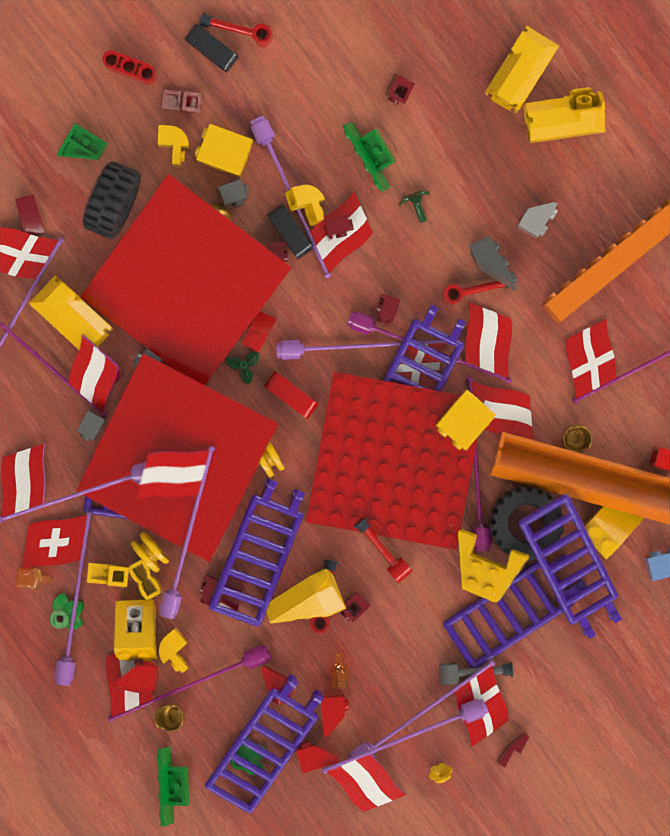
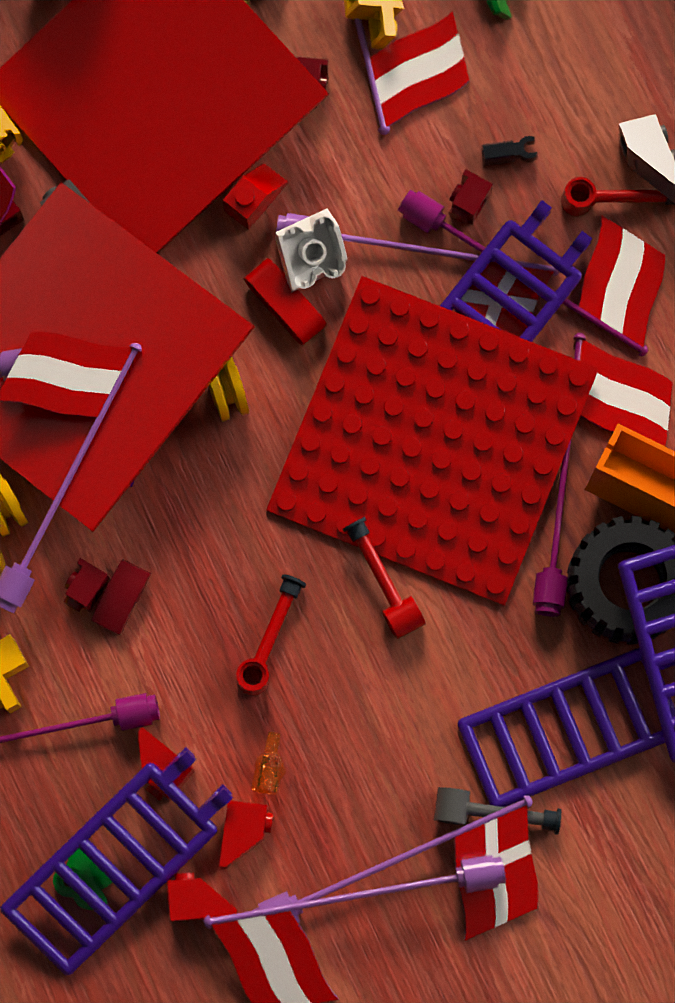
camera: 10 degrees right, 10 degrees down
(250, 360) = (220, 238): dark green plant -> none
(264, 500) = (138, 529): dark purple bar -> none
(290, 231) = (339, 49): black beam -> none
(301, 363) = (311, 250): none -> white slope
(310, 598) = (247, 628): yellow wedge -> none
(338, 226) = (416, 55): dark red brick -> none
(362, 606) = (321, 651): dark red brick -> none
(404, 274) = (508, 151): none -> black bar
(416, 199) = (547, 38): dark green plant -> none
(440, 773) = (404, 973): yellow plant -> none
(465, 420) = (561, 389): yellow brick -> none
(483, 575) = (542, 652): yellow wing -> none
(516, 745) = (543, 952): dark red slope -> none

